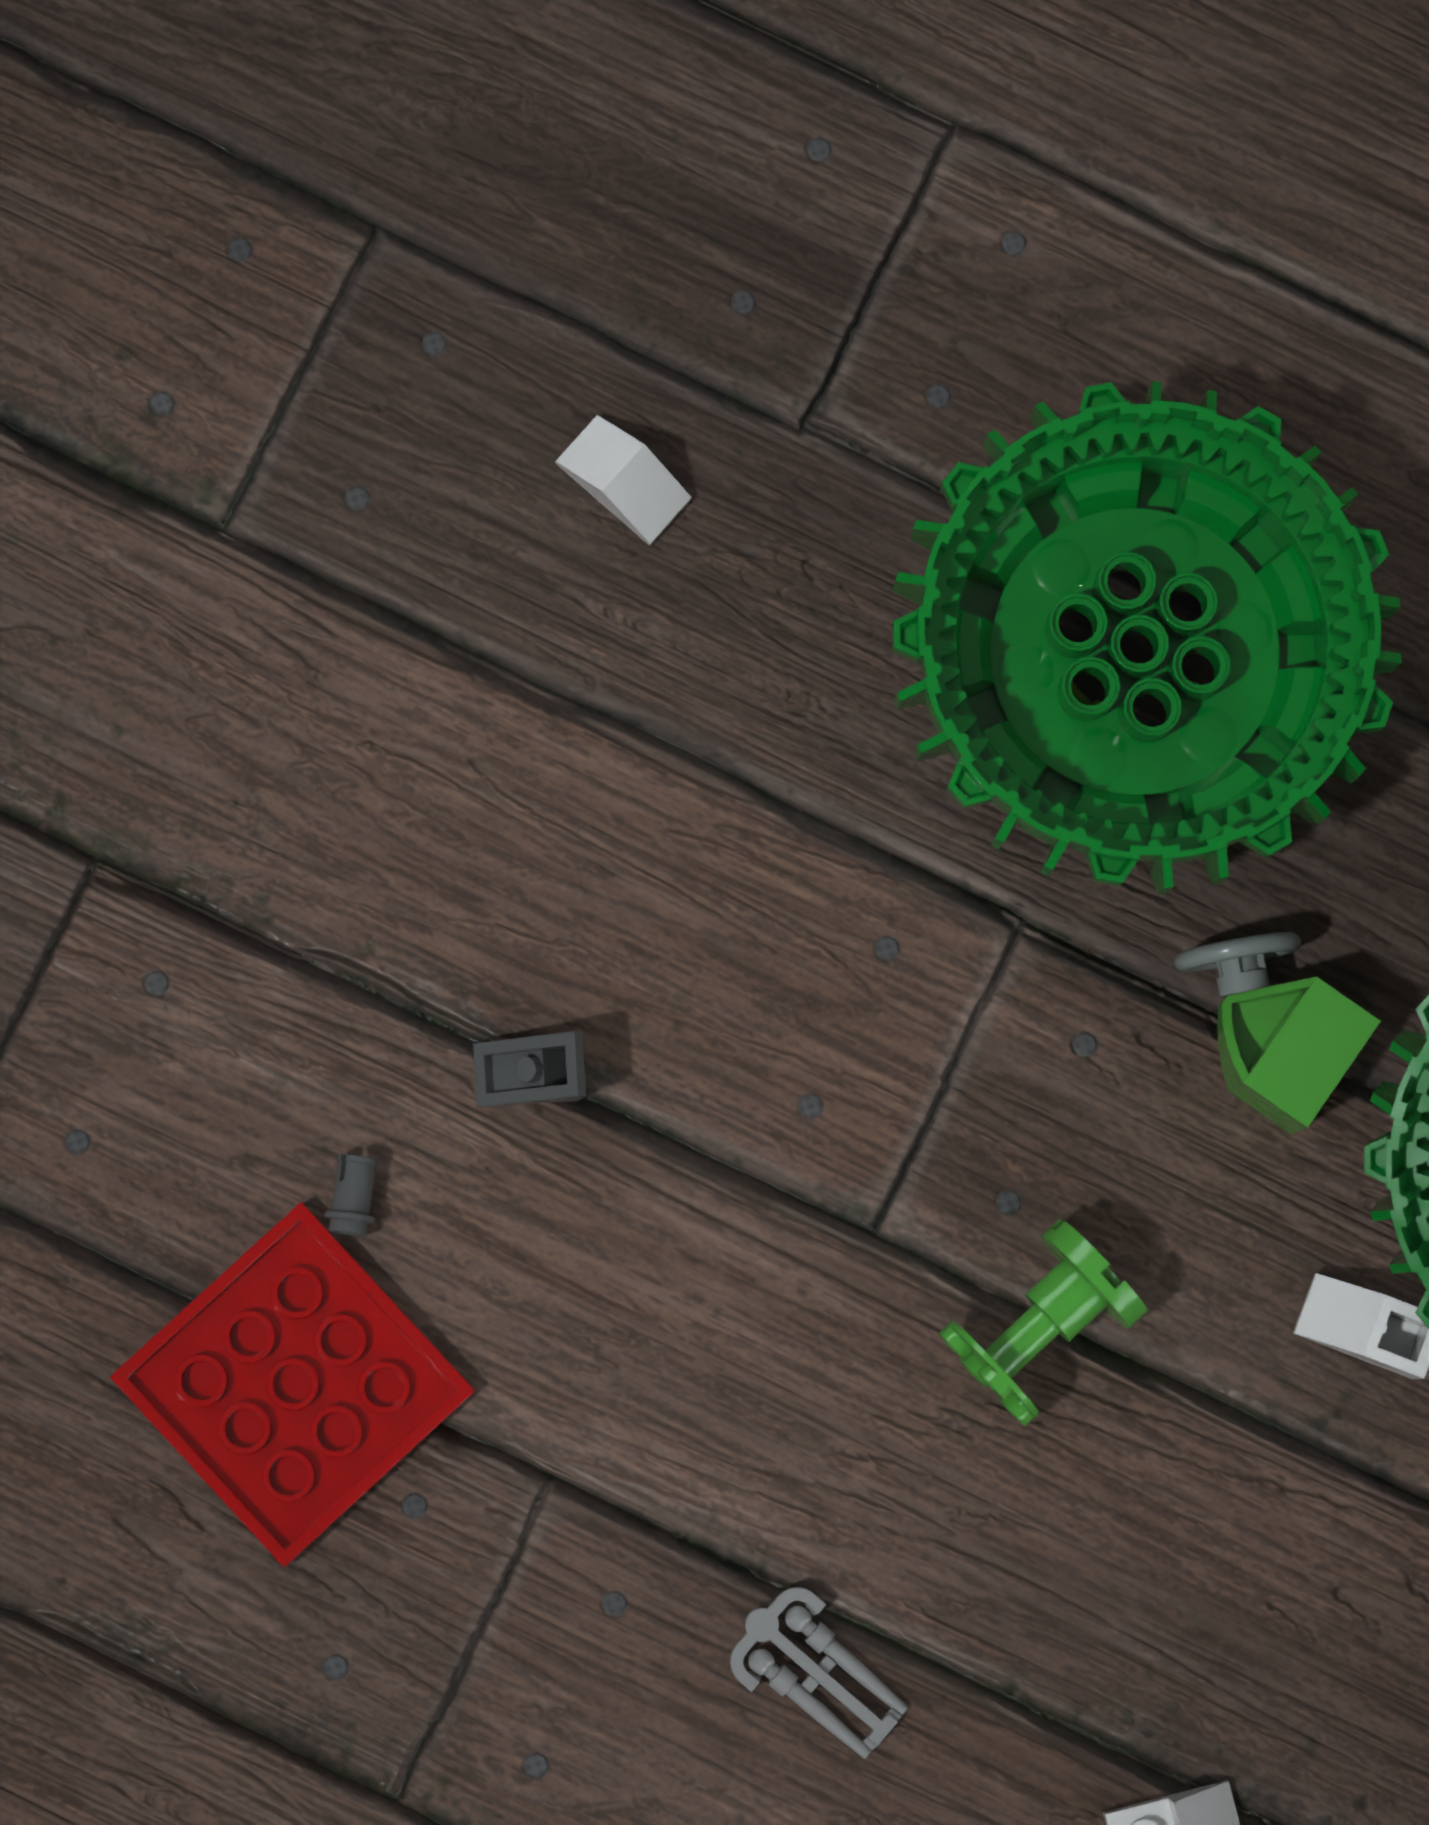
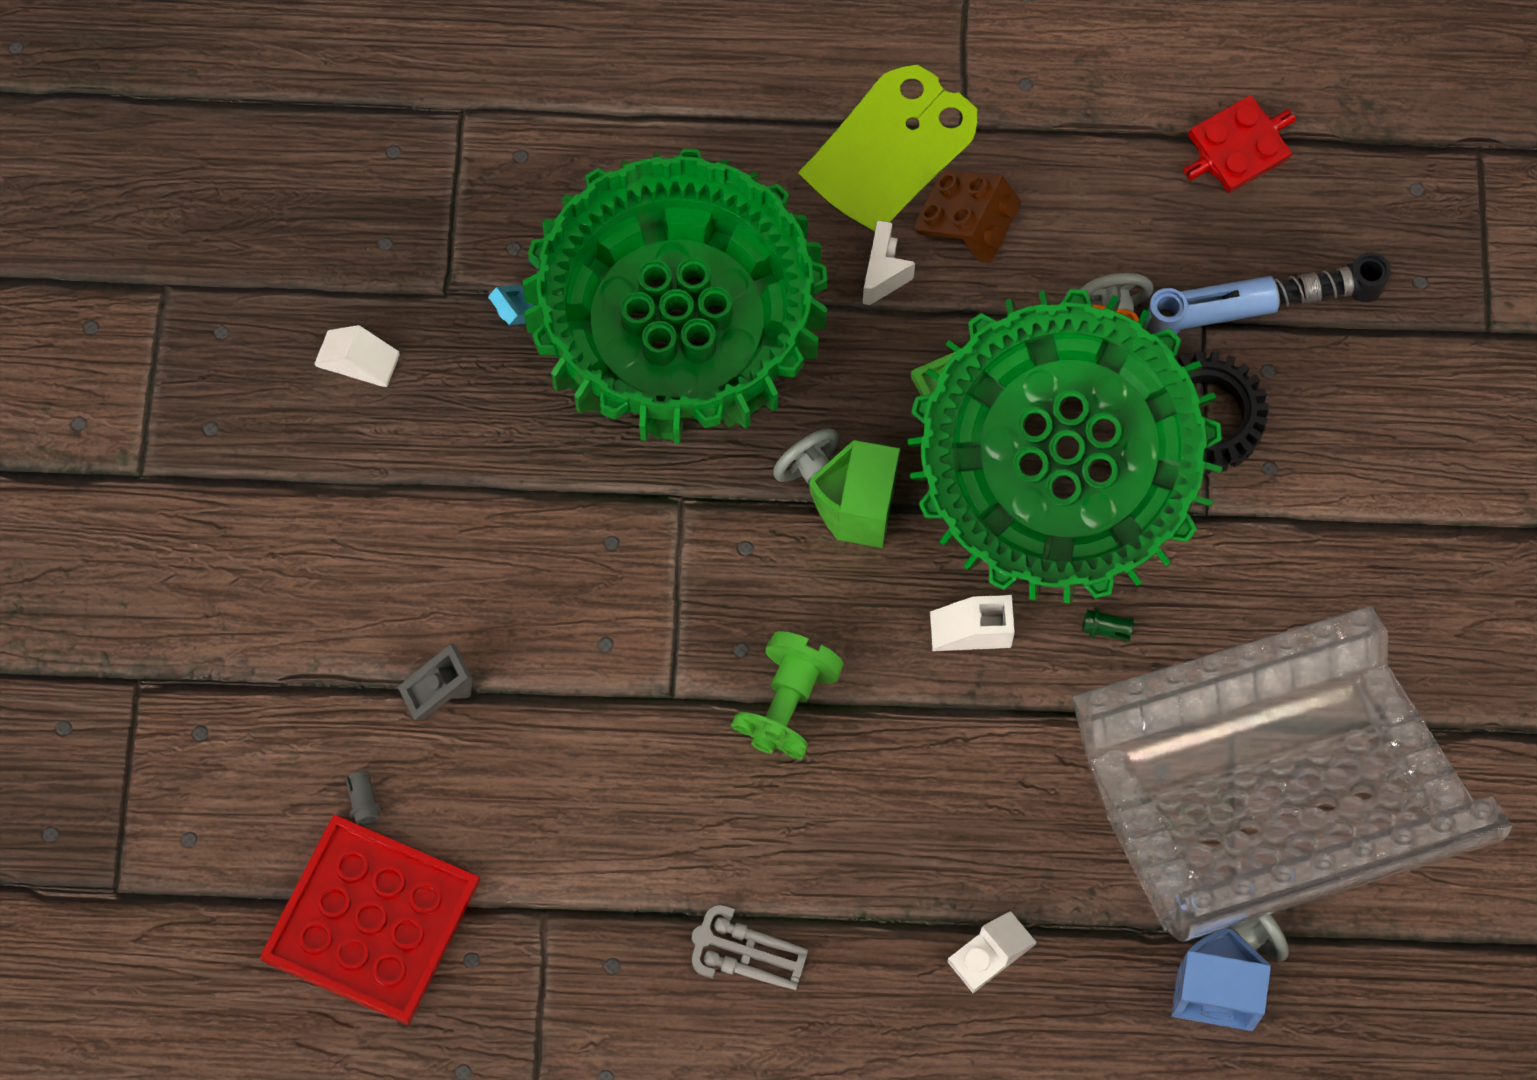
camera: 15 degrees left, 15 degrees down
(897, 499) = (510, 303): none -> medium azure plate

